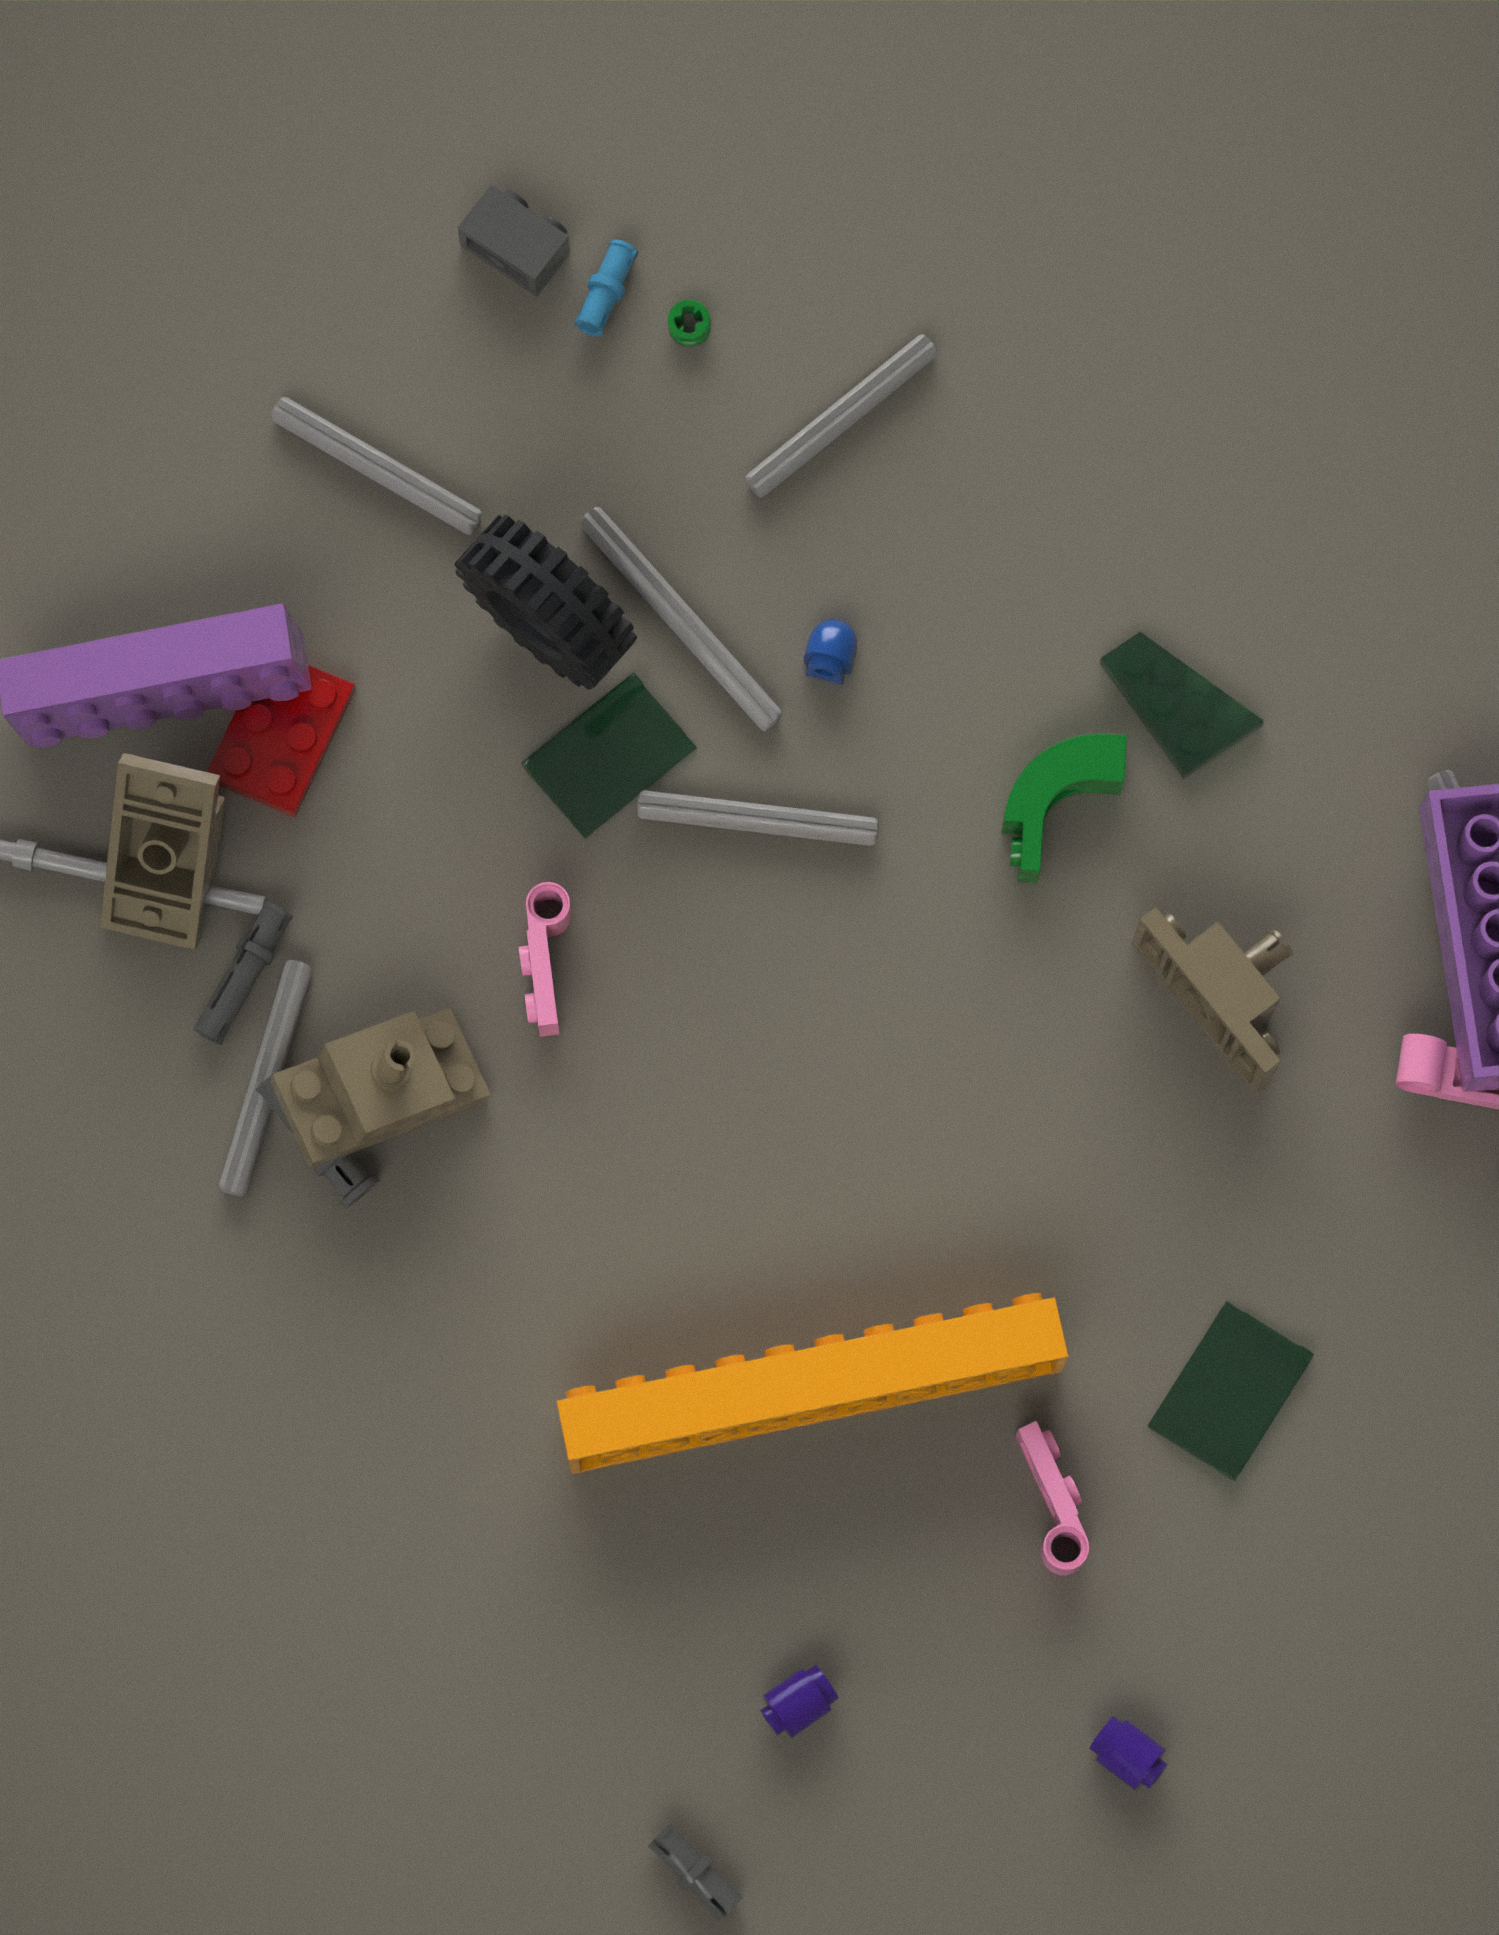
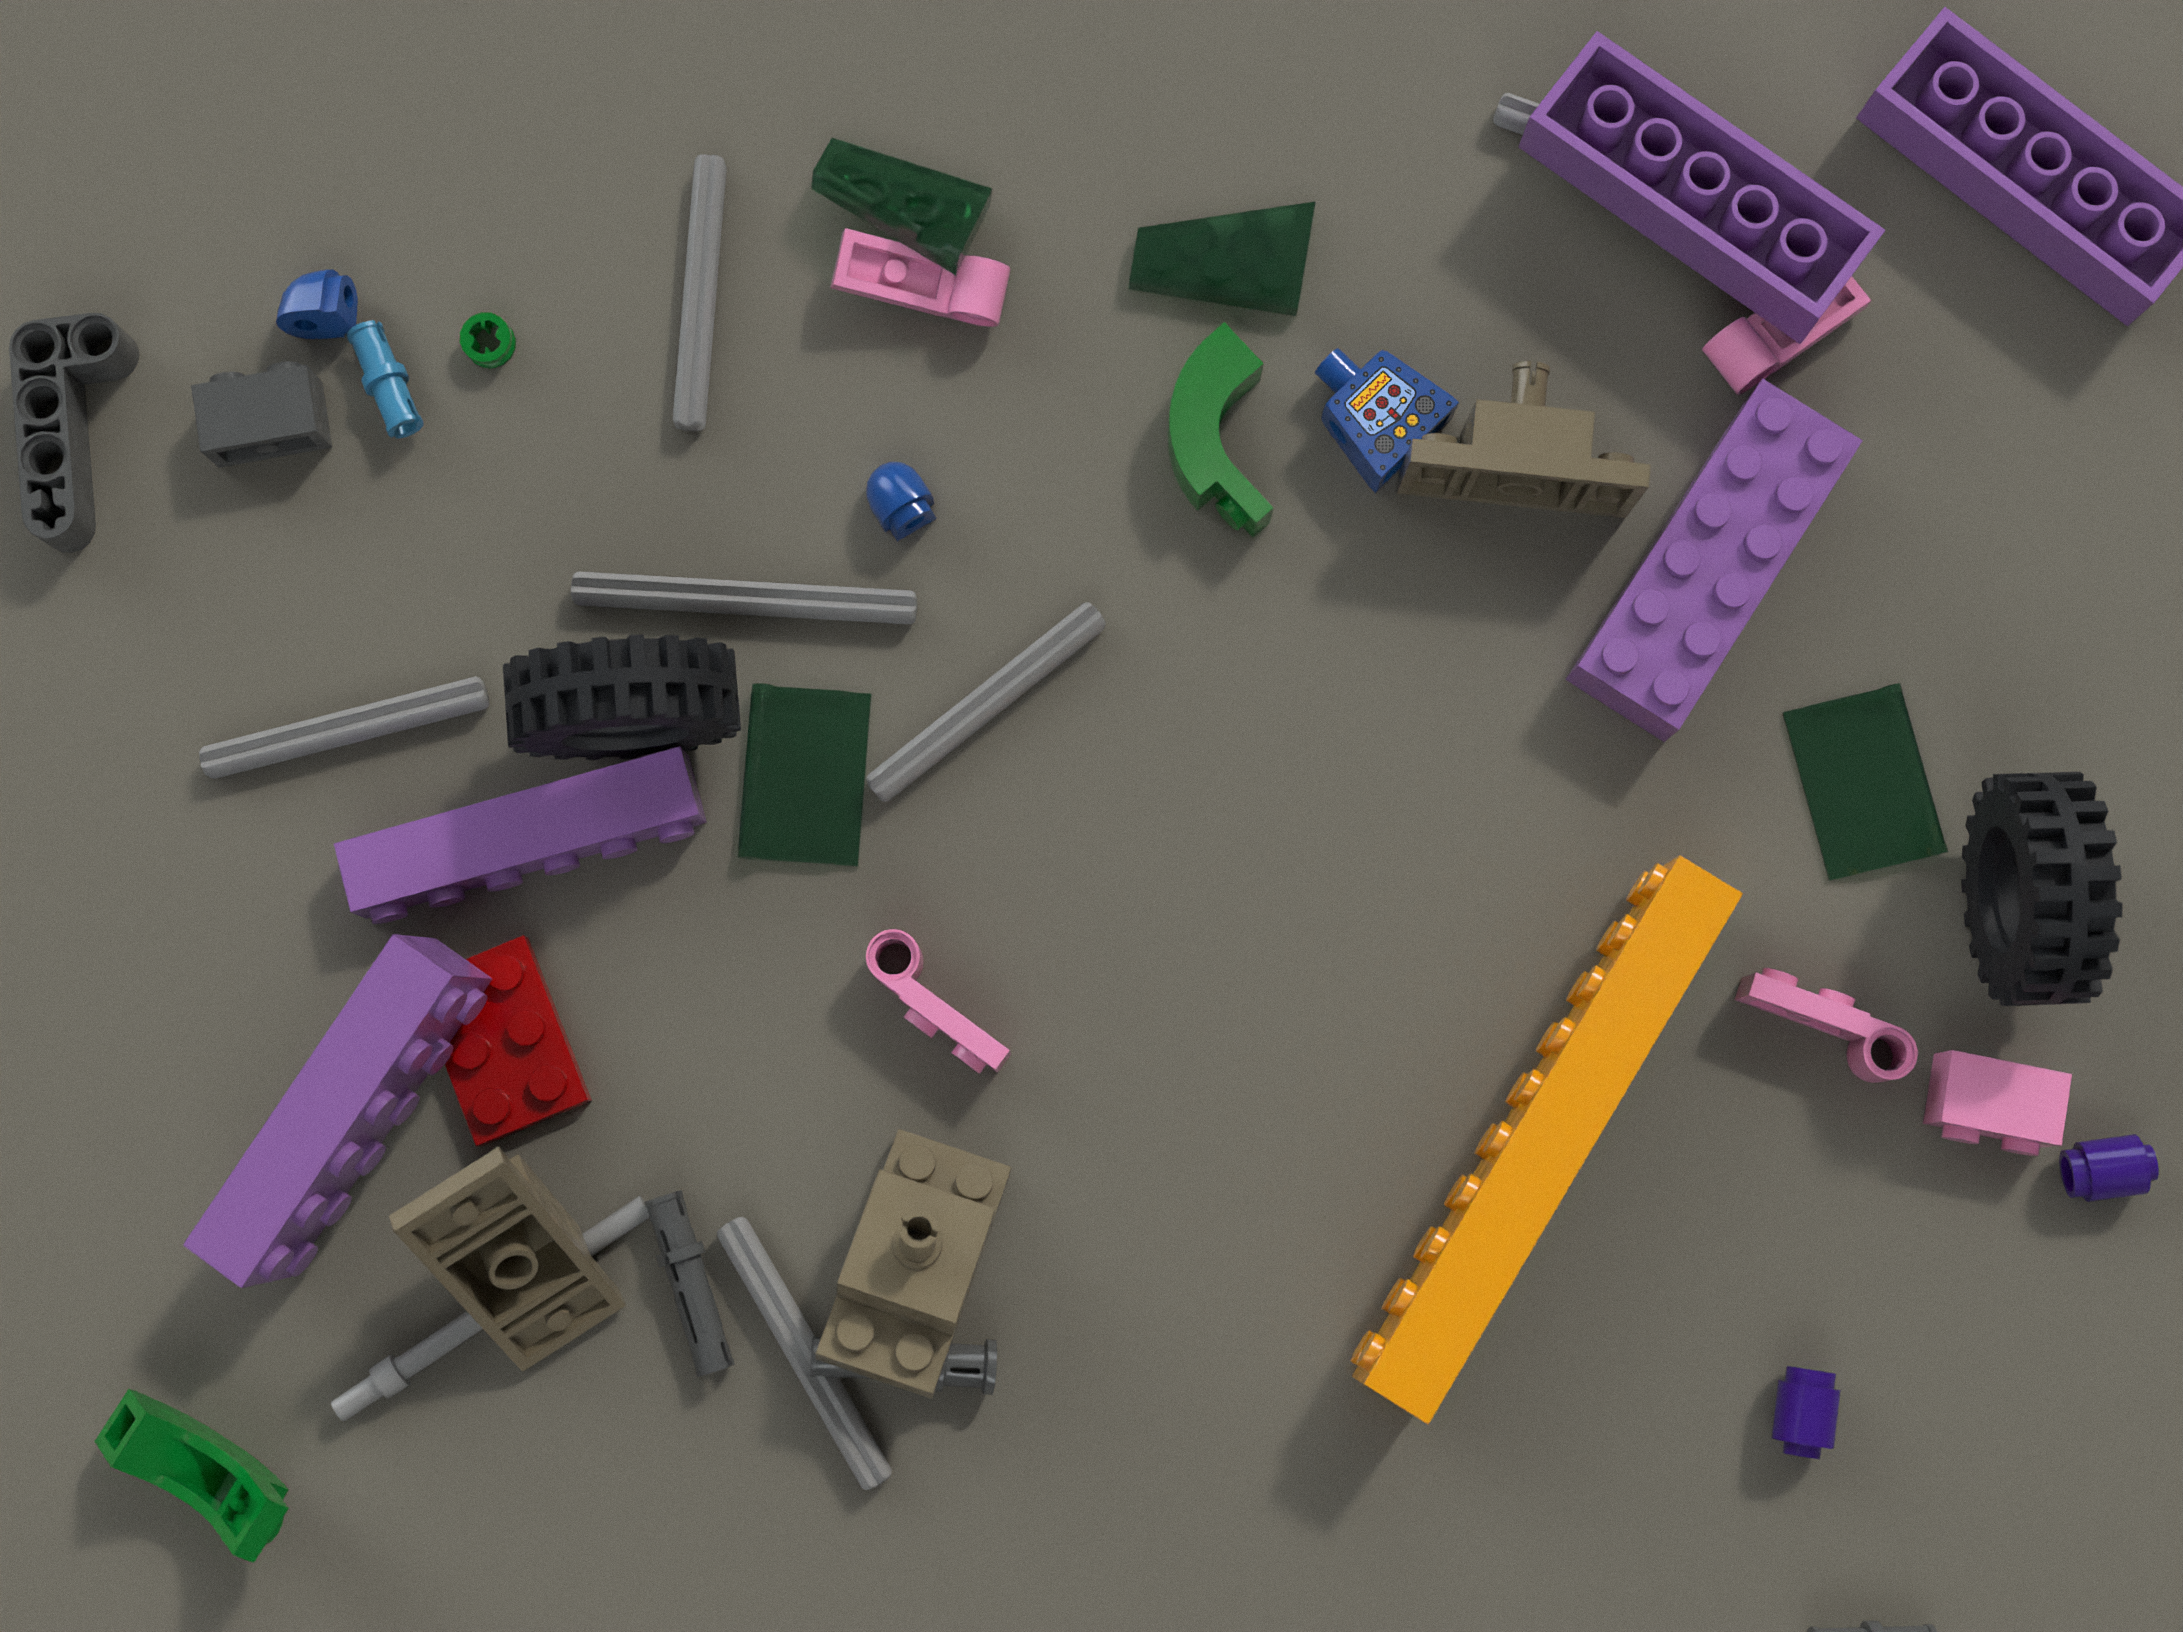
camera: 45 degrees left, 5 degrees up
(396, 140) = (66, 430): none -> dark grey beam
(413, 626) = (519, 835): none -> medium lavender brick
(612, 208) = (318, 306): none -> blue piece
(977, 535) = (905, 278): none -> bright pink plate
(1016, 480) = (904, 200): none -> clear green wing
(1103, 1646) = (1997, 1100): none -> bright pink brick
(1171, 878) = (1380, 411): none -> blue torso
(1246, 1531) = (2041, 888): none -> black tyre
(1274, 1166) = (1714, 561): none -> medium lavender brick

